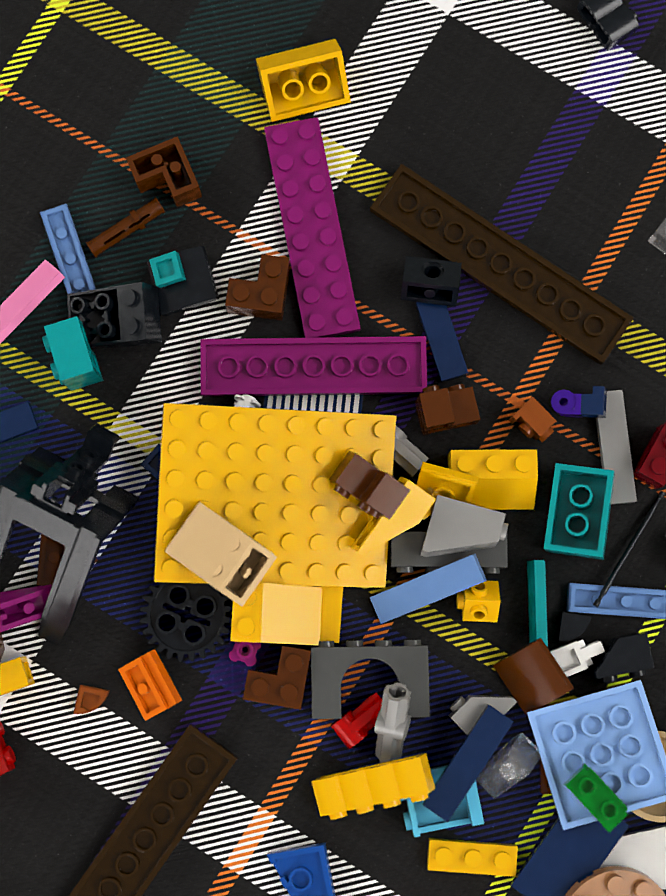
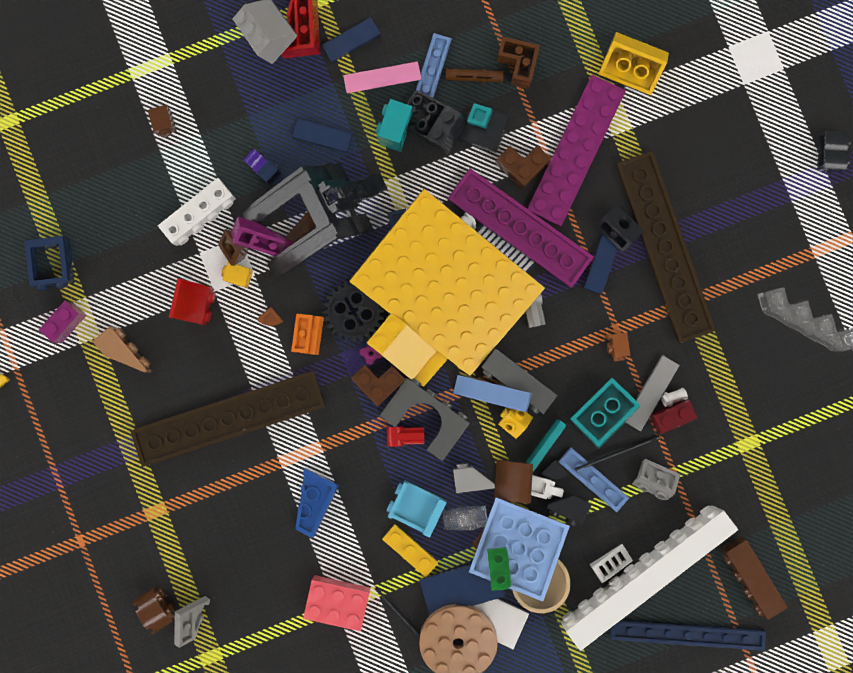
camera: 40 degrees right, 5 degrees up
(220, 554) = (395, 292): tan slope -> none
(374, 489) = (503, 319): reddish brown brick -> none
(374, 785) = (384, 473): yellow brick -> none
(392, 722) = (420, 450): light grey piece -> none
(412, 510) = (505, 341): yellow slope -> none
(446, 410) = (575, 305): reddish brown brick -> none
(447, 483) = (539, 349): yellow tile -> none
(462, 528) = (534, 374): light grey slope -> none
(468, 763) = (444, 500): dark blue tile -> none
(505, 476) = (571, 361): yellow slope -> none
(581, 405) = (651, 357): leg -> none
(644, 432) = (669, 399): none -> white pin

